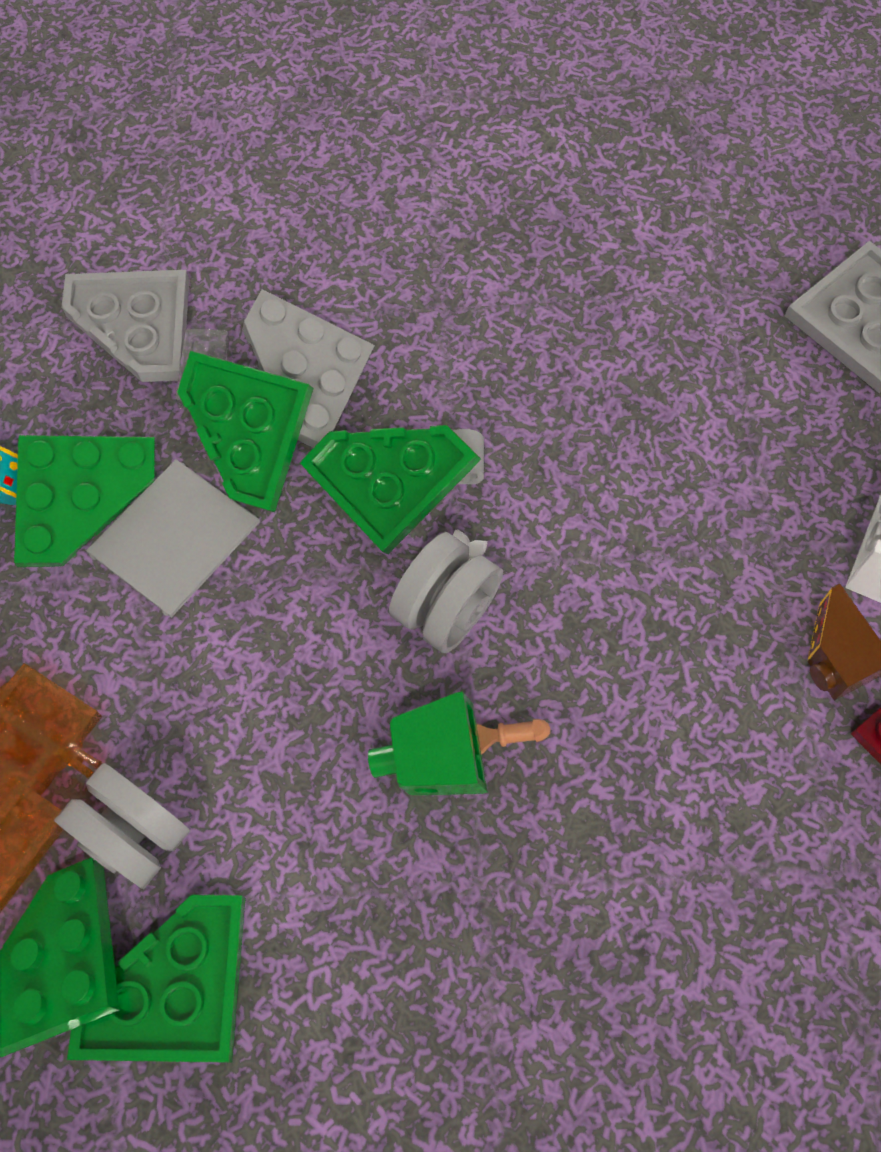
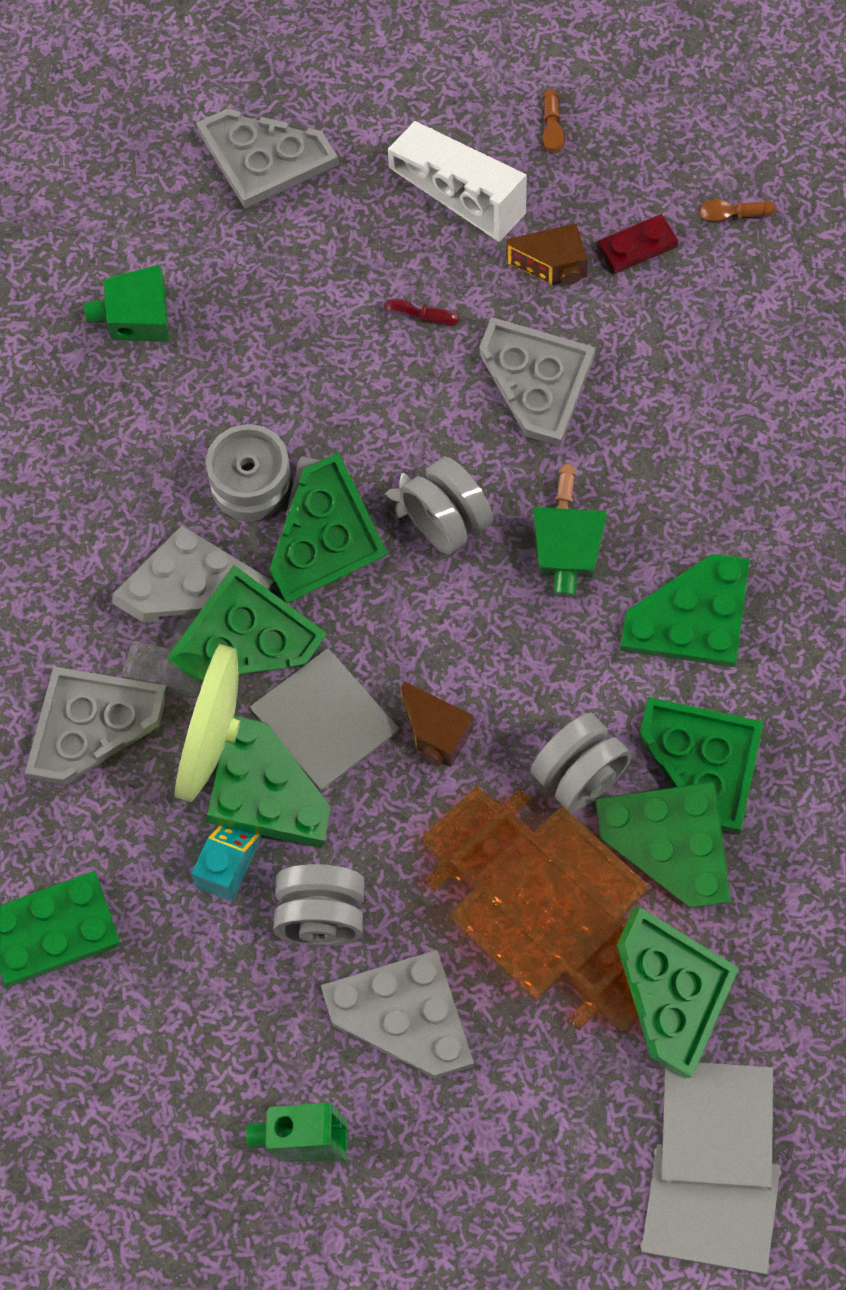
camera: 75 degrees left, 0 degrees up
(98, 391) = (210, 724): none -> yellowish green dish
(169, 647) = (435, 725): none -> reddish brown slope
(380, 936) = (692, 615): none -> green plate
(444, 381) = (249, 472): none -> light grey wheel
(623, 241) = (133, 306): none -> green torso
(666, 668) = (536, 376): none -> light grey plate
(714, 523) = (425, 314): none -> dark red piece

